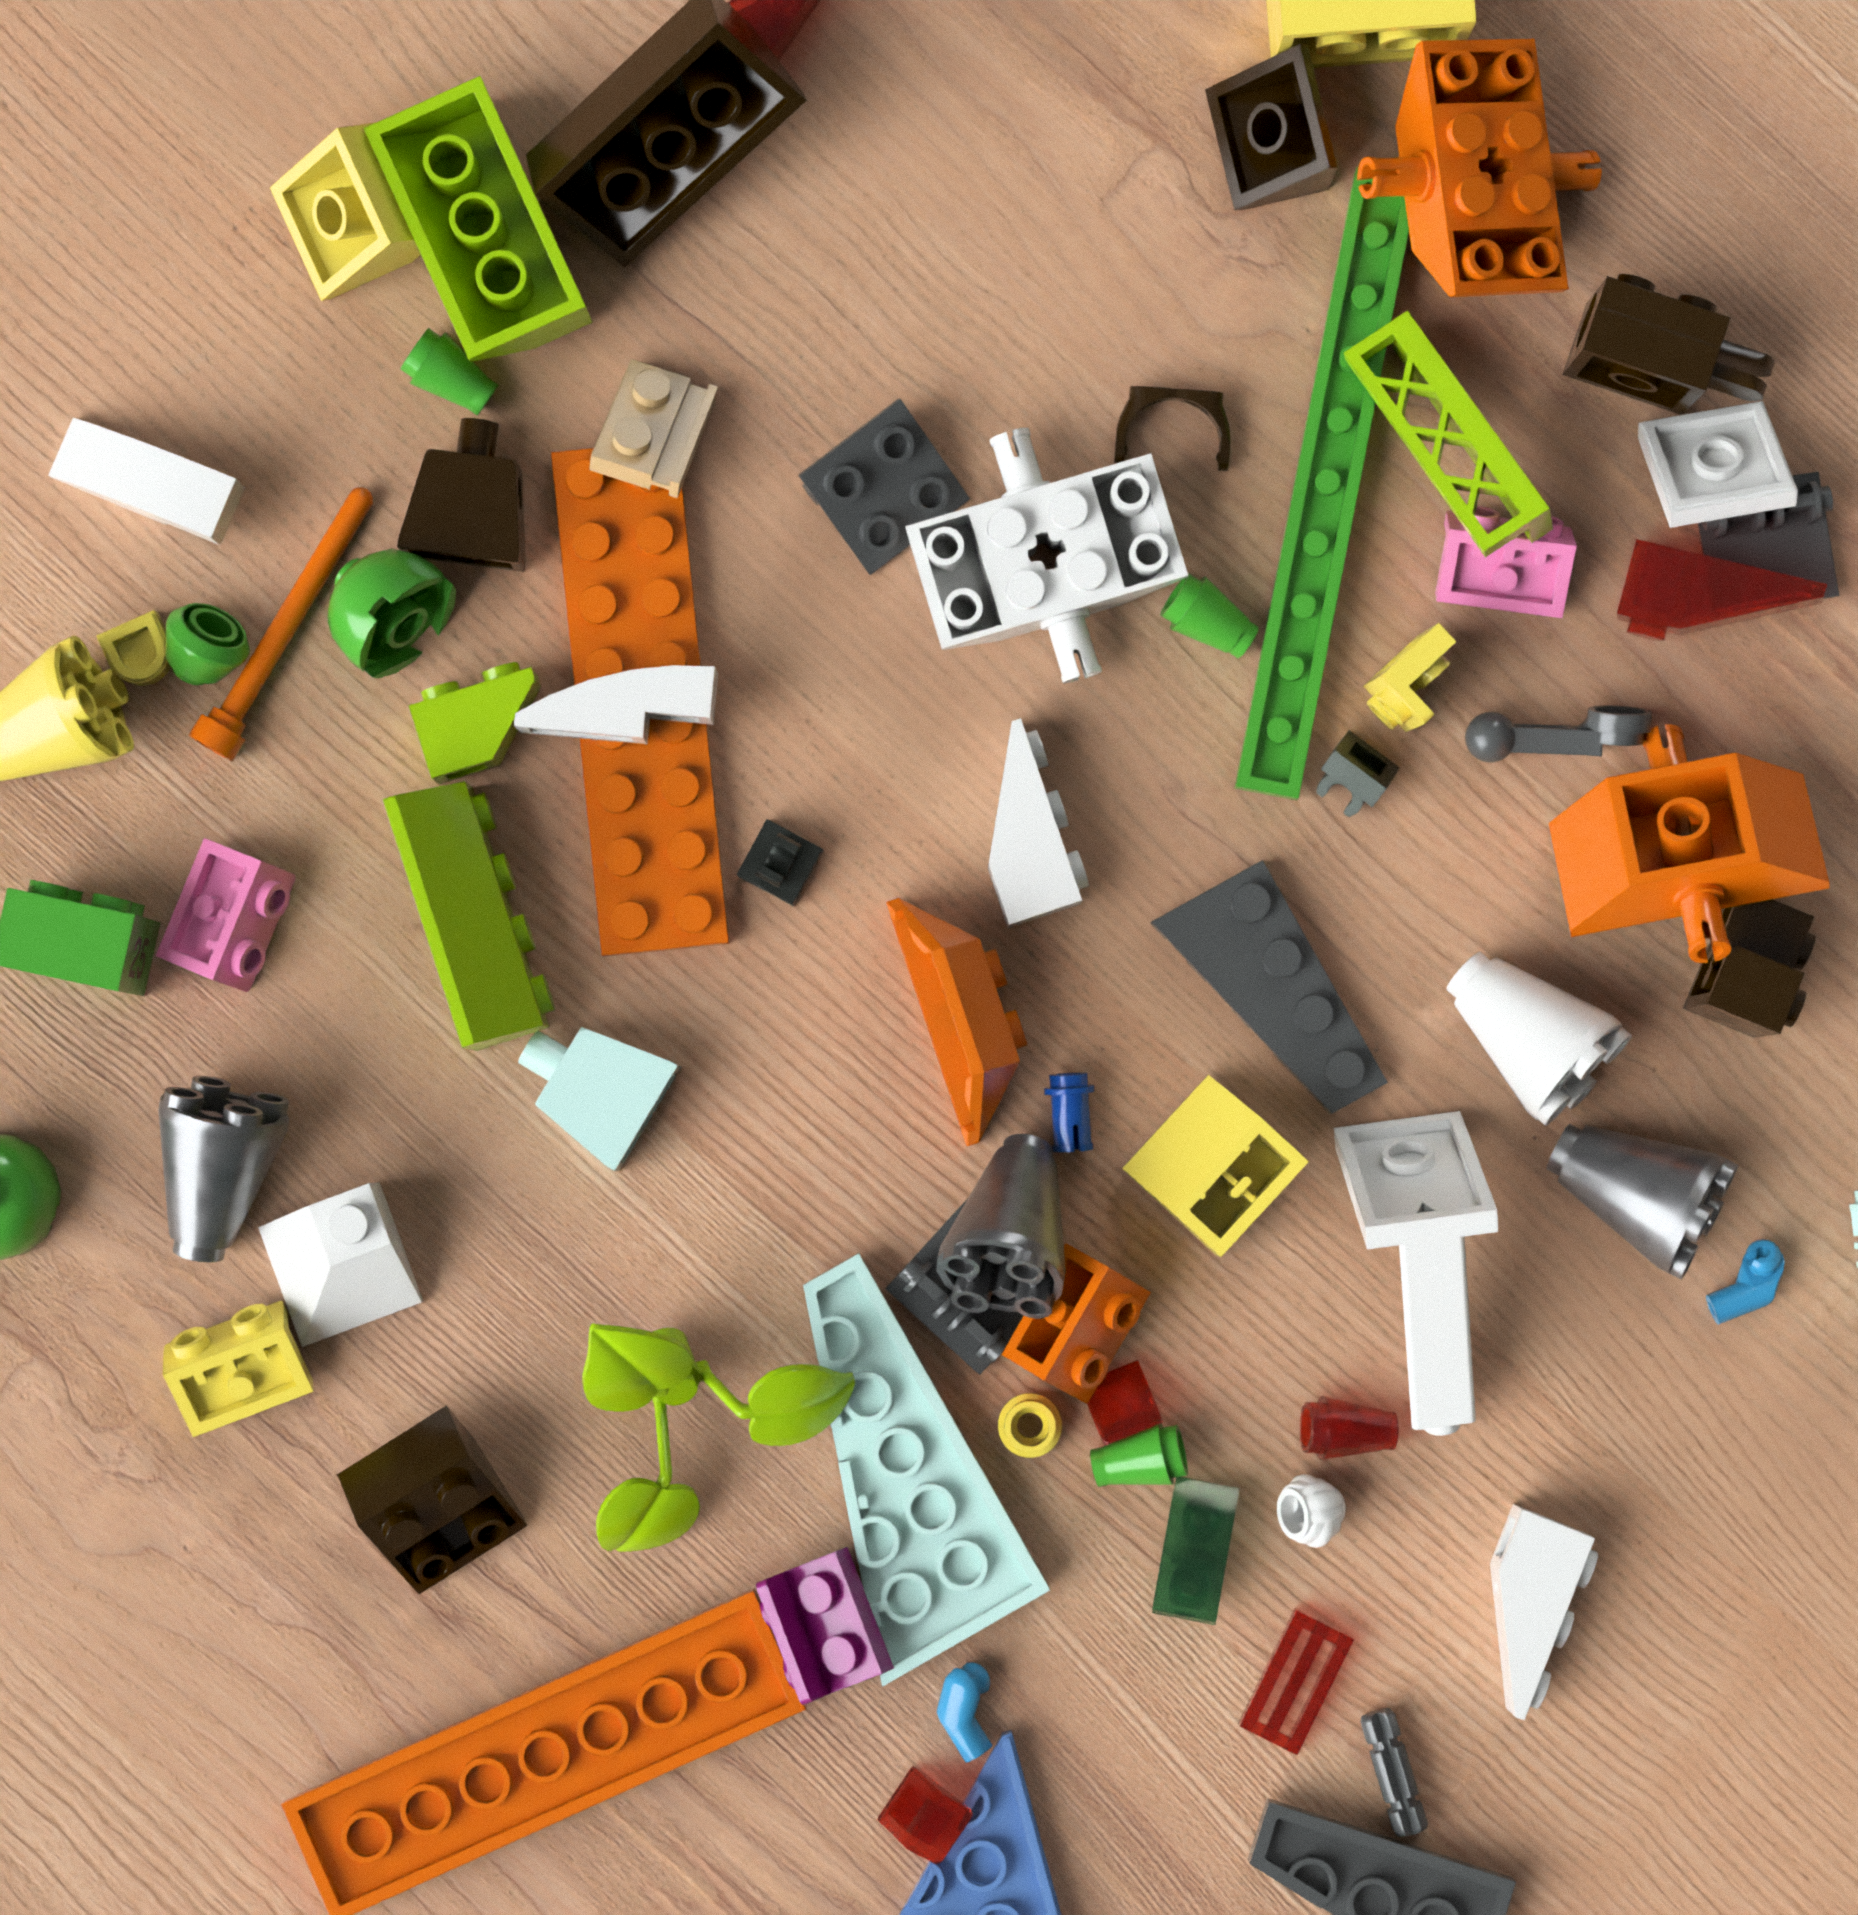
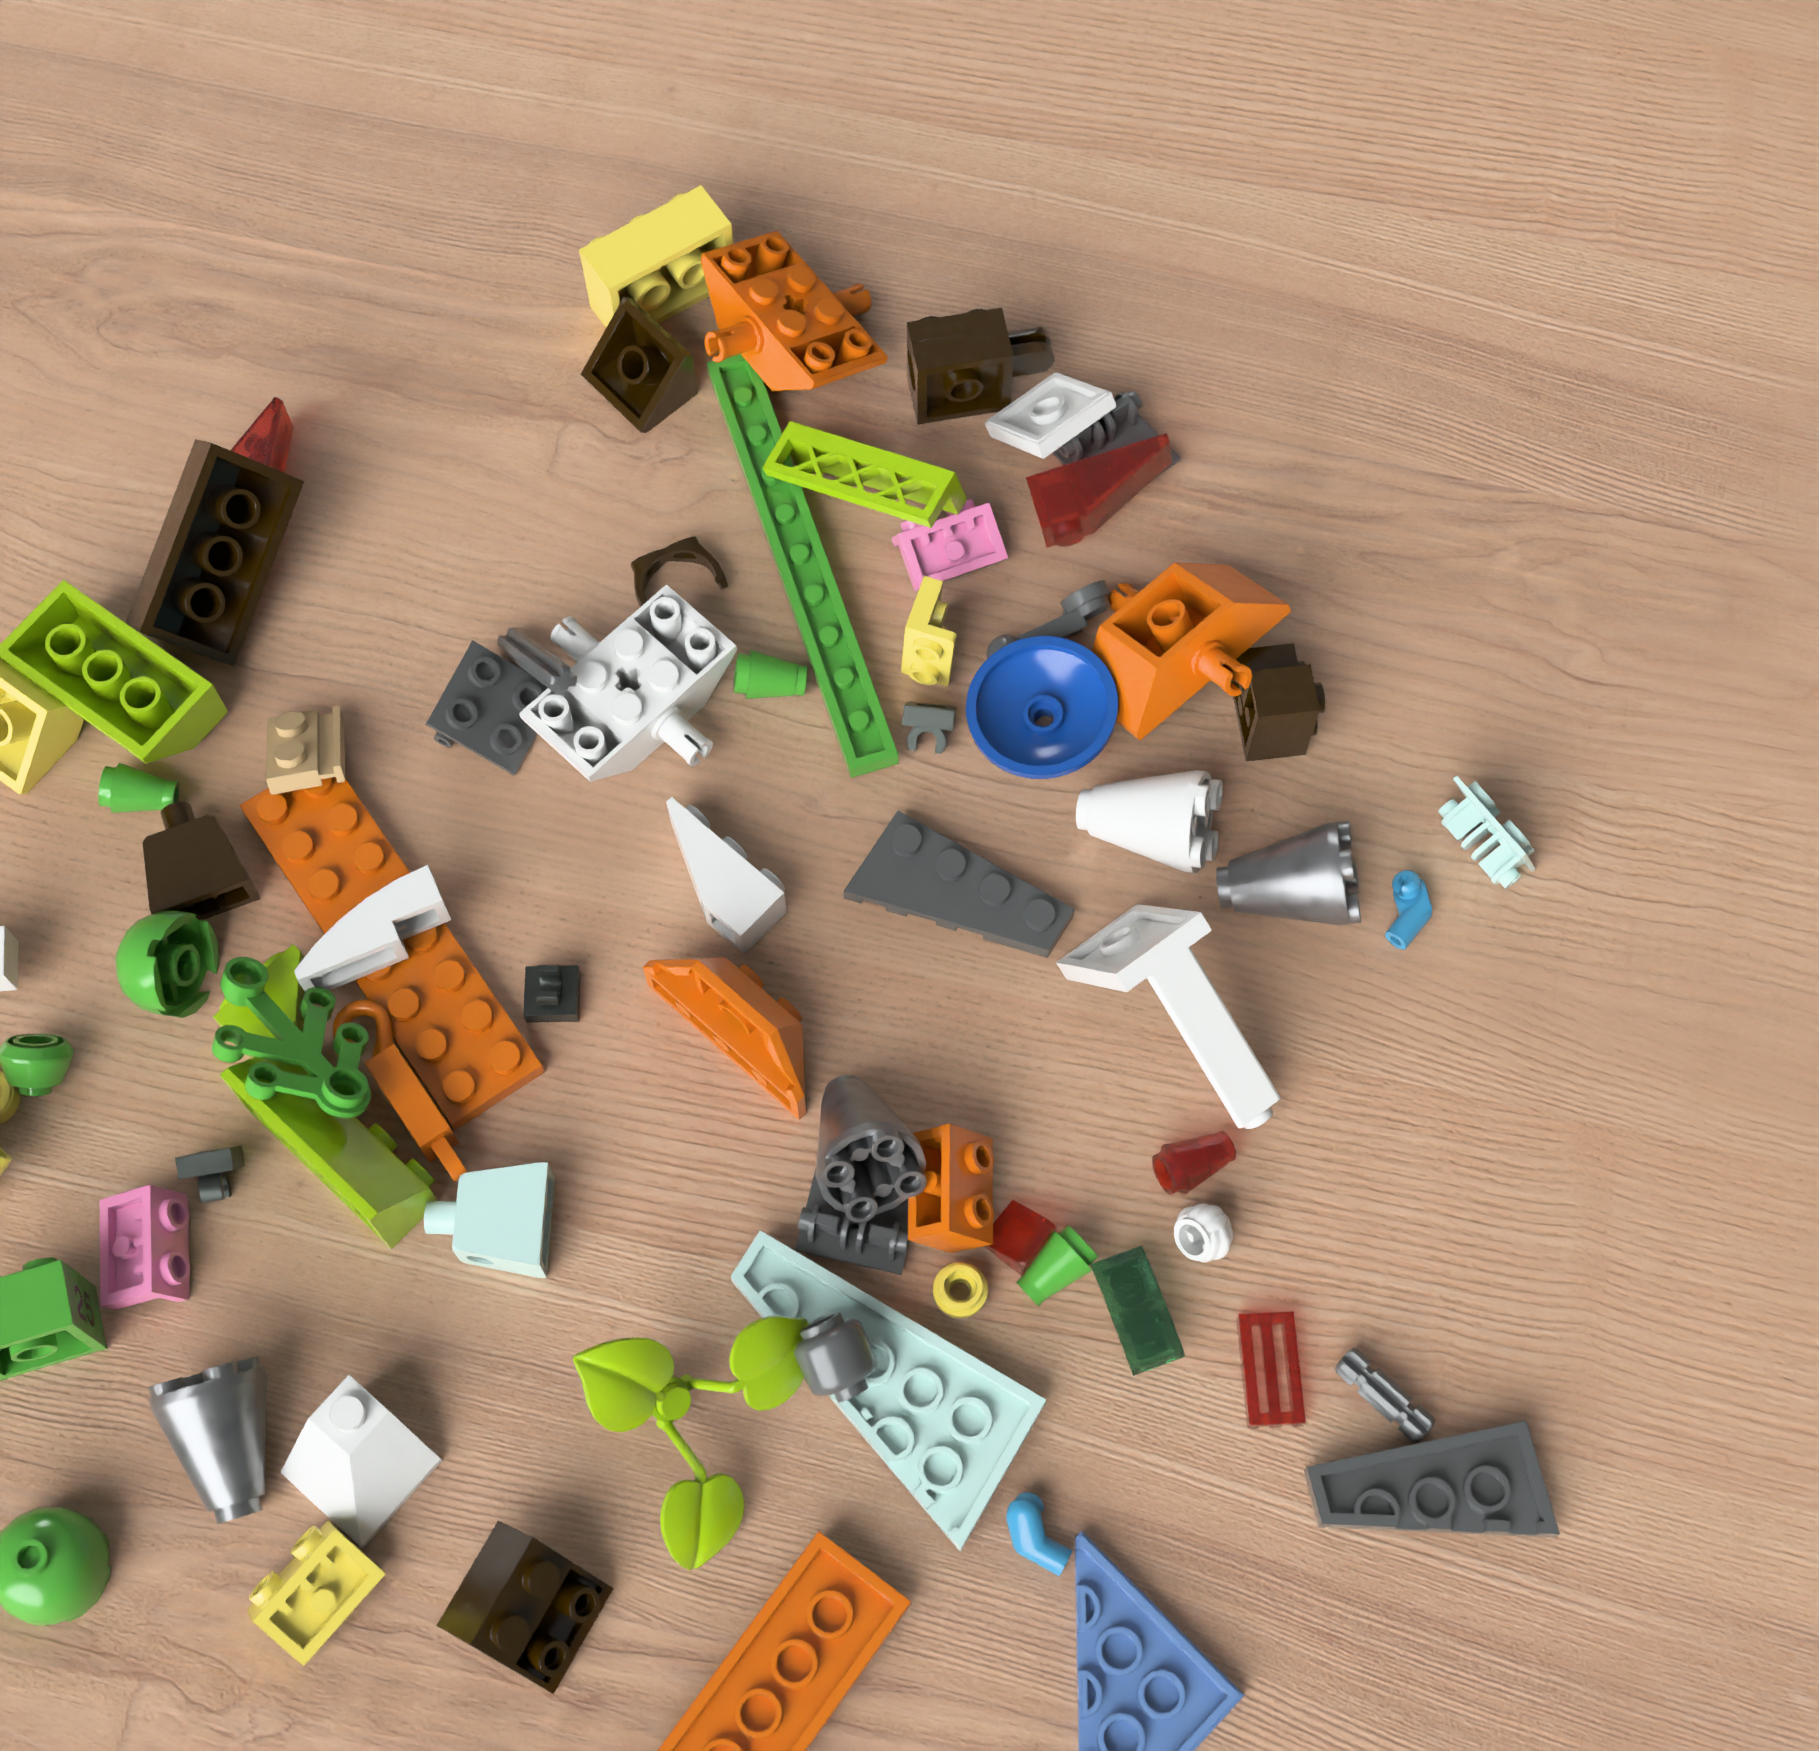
camera: 30 degrees left, 20 degrees down
(224, 726) = (78, 1116): orange piece -> none
(333, 866) = (211, 1170): none -> pearl dark grey tile
(478, 802) = (337, 1090): none -> bright green plant
(570, 886) = (404, 1088): none -> orange piece
(823, 1626) = (889, 1526): magenta bracket -> none
(861, 1437) = (835, 1357): none -> dark grey head
(925, 1816) = (1053, 1636): clear red slope -> none
(958, 467) = (537, 661): none -> dark grey axle
(1070, 1111) = (860, 1048): blue pin -> none
(1215, 1165) = (987, 1025): light yellow slope -> none
(1496, 789) = (1034, 681): none -> blue dish
(1533, 1585) = (1396, 1197): white slope -> none

